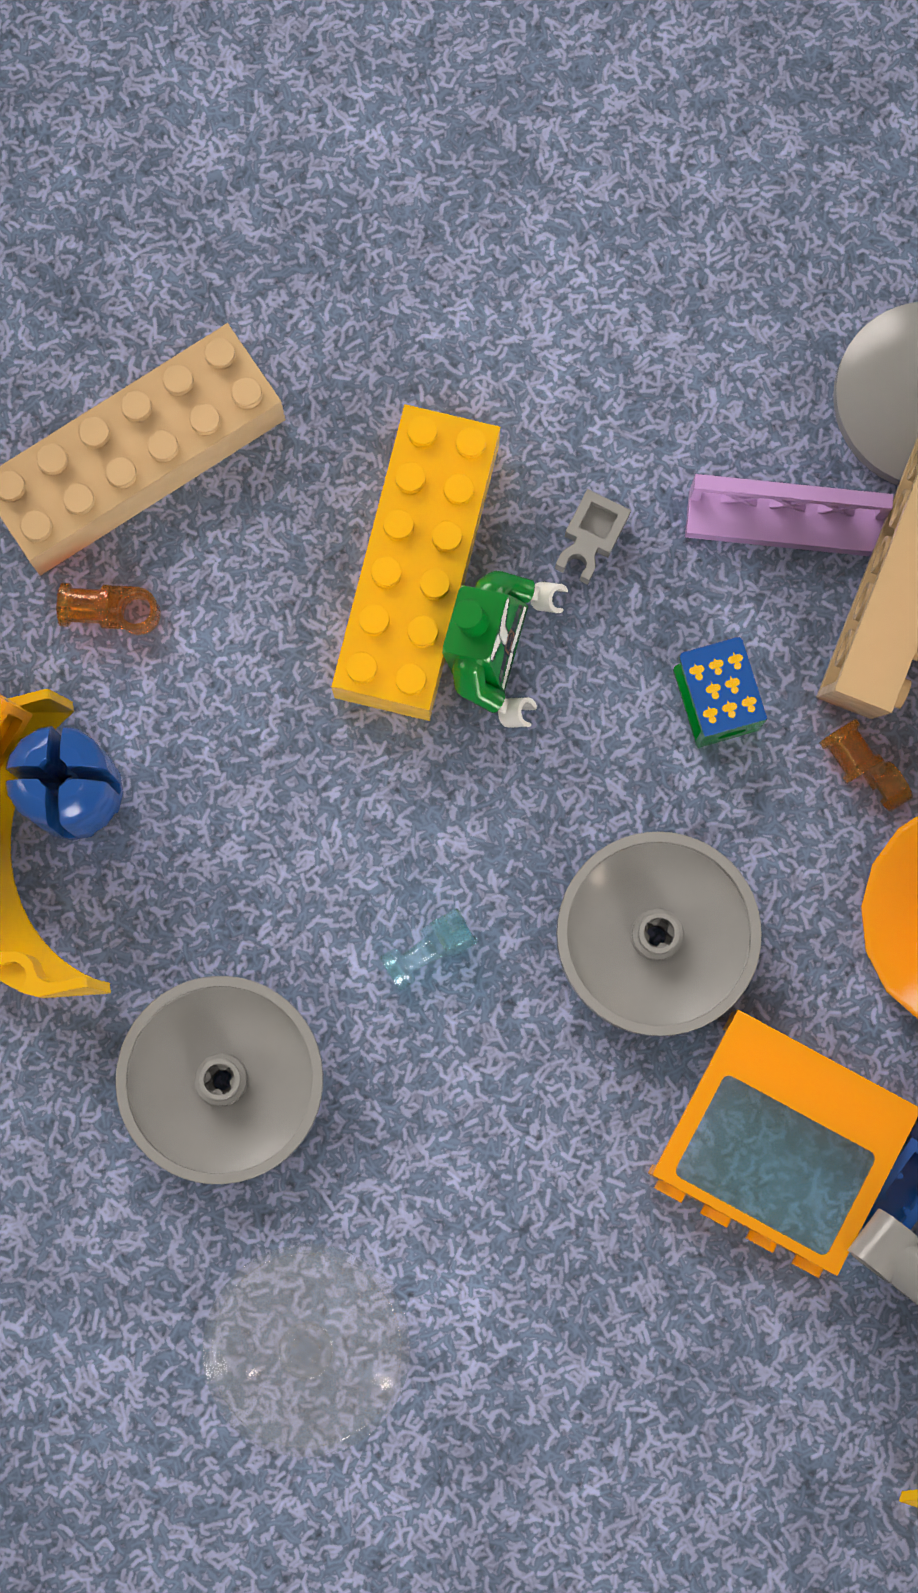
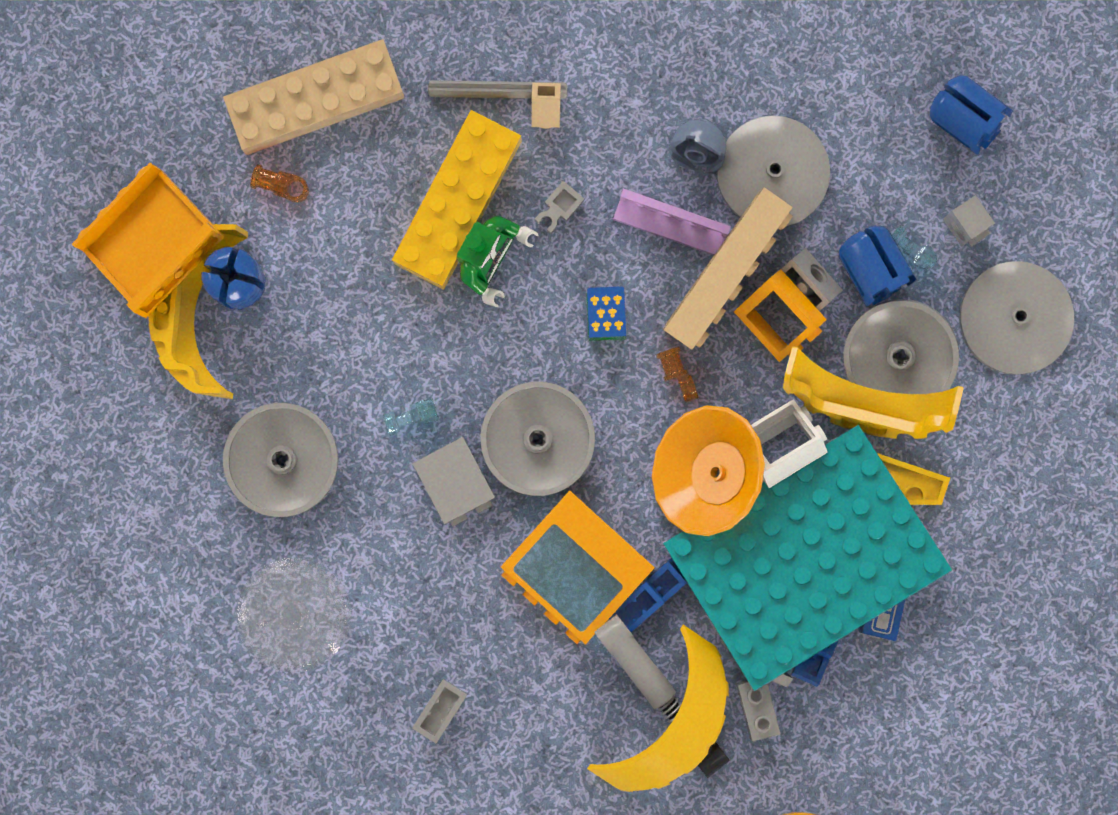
camera: 15 degrees right, 5 degrees up
(438, 368) = (486, 89): none -> light grey axle
(527, 371) = (546, 105): none -> tan brick
(533, 1044) = (454, 482): none -> light grey brick
(610, 1462) = (439, 711): none -> light grey tile
(800, 377) = (698, 144): none -> sand blue cylinder

